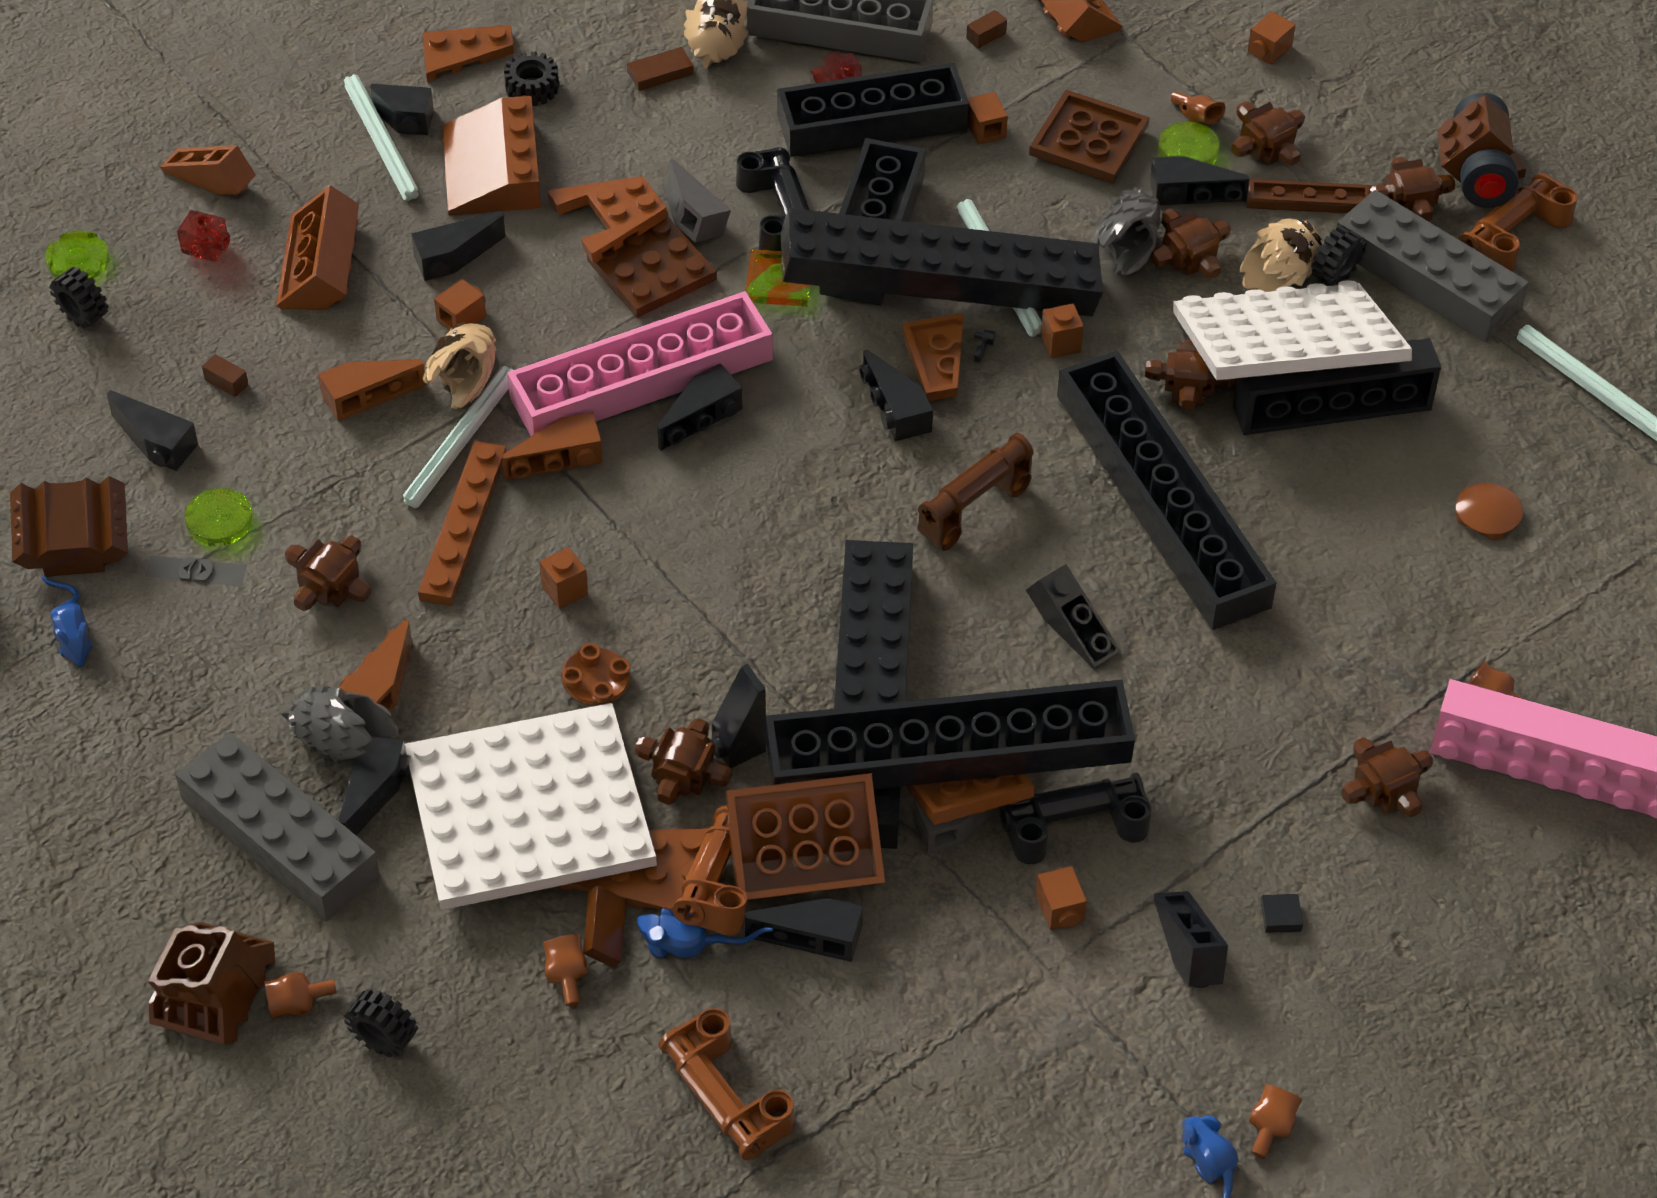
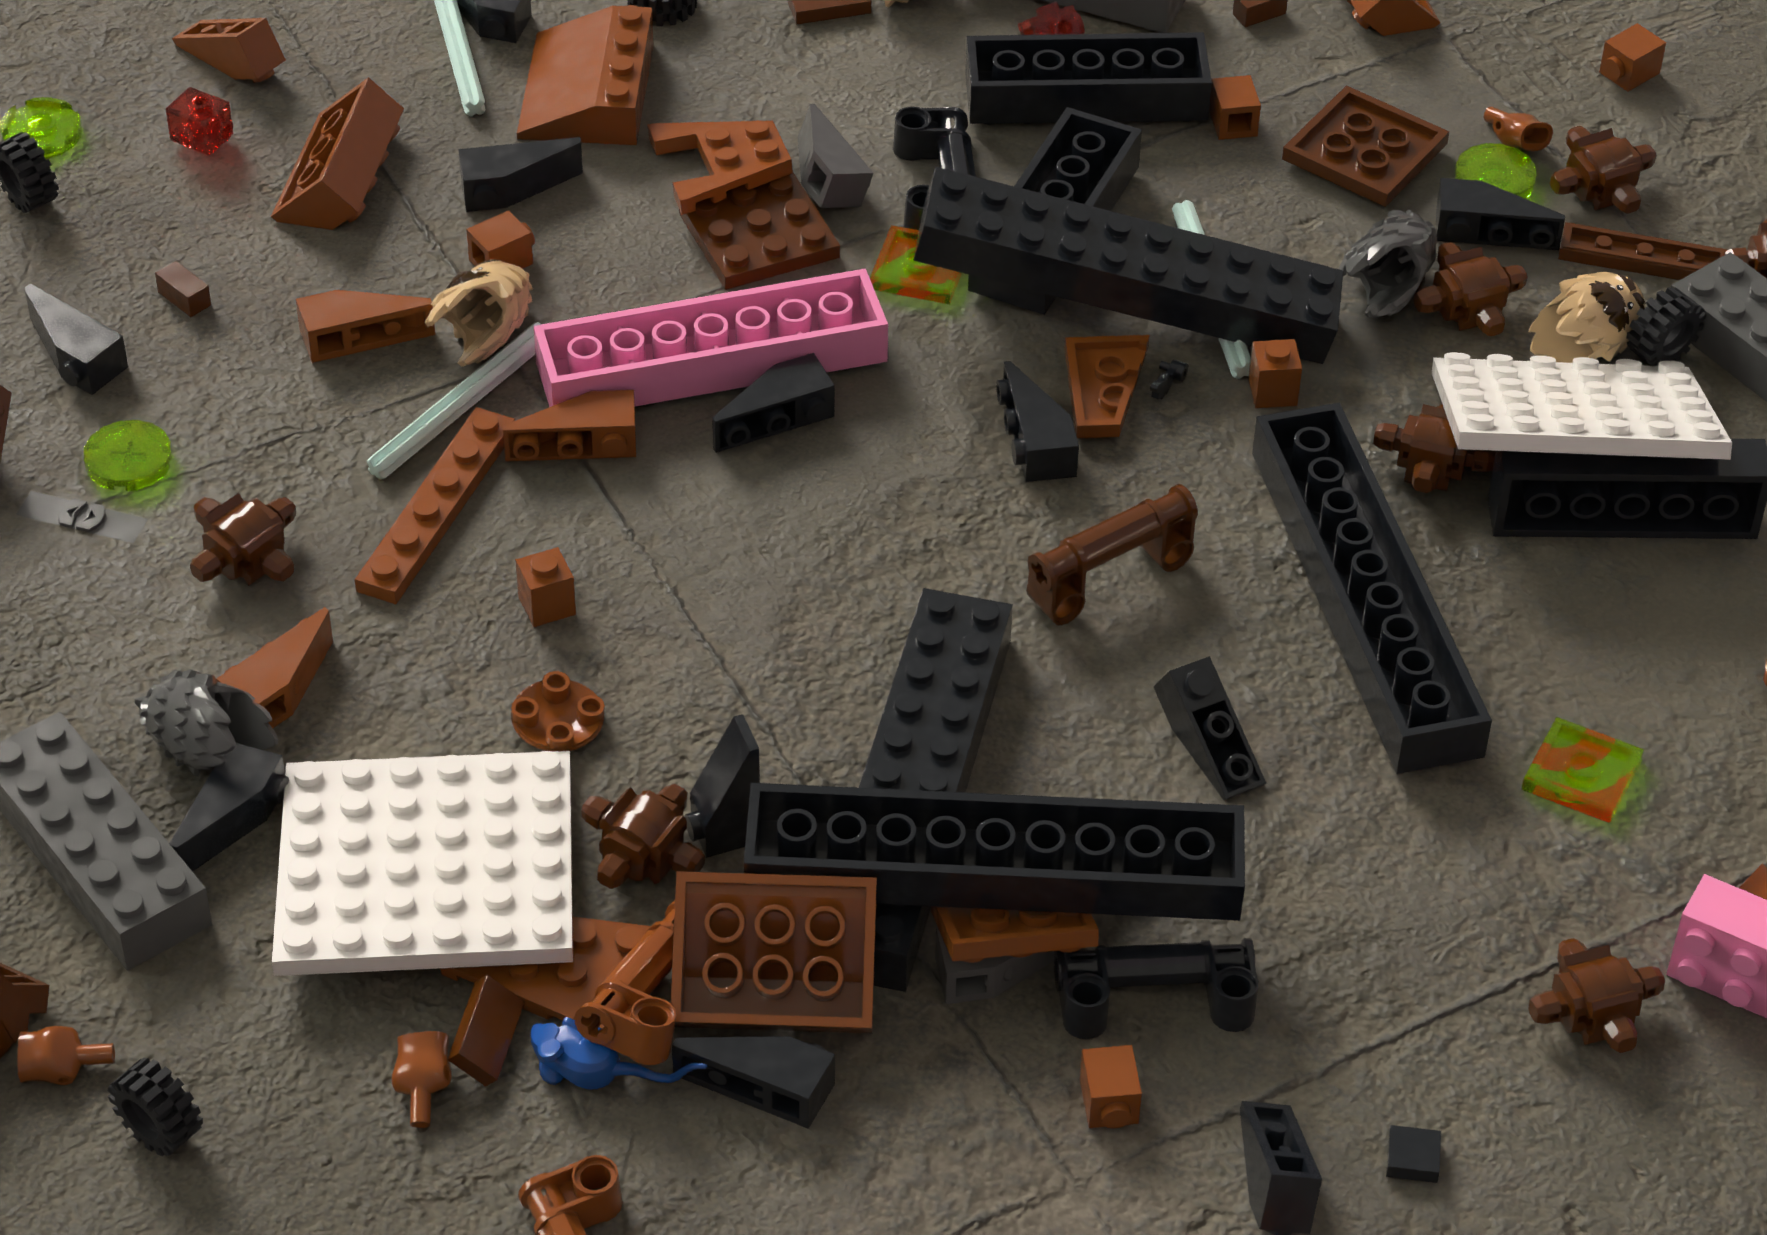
camera: 10 degrees right, 5 degrees down
(1342, 607) = (1582, 769): none -> clear neon green tile

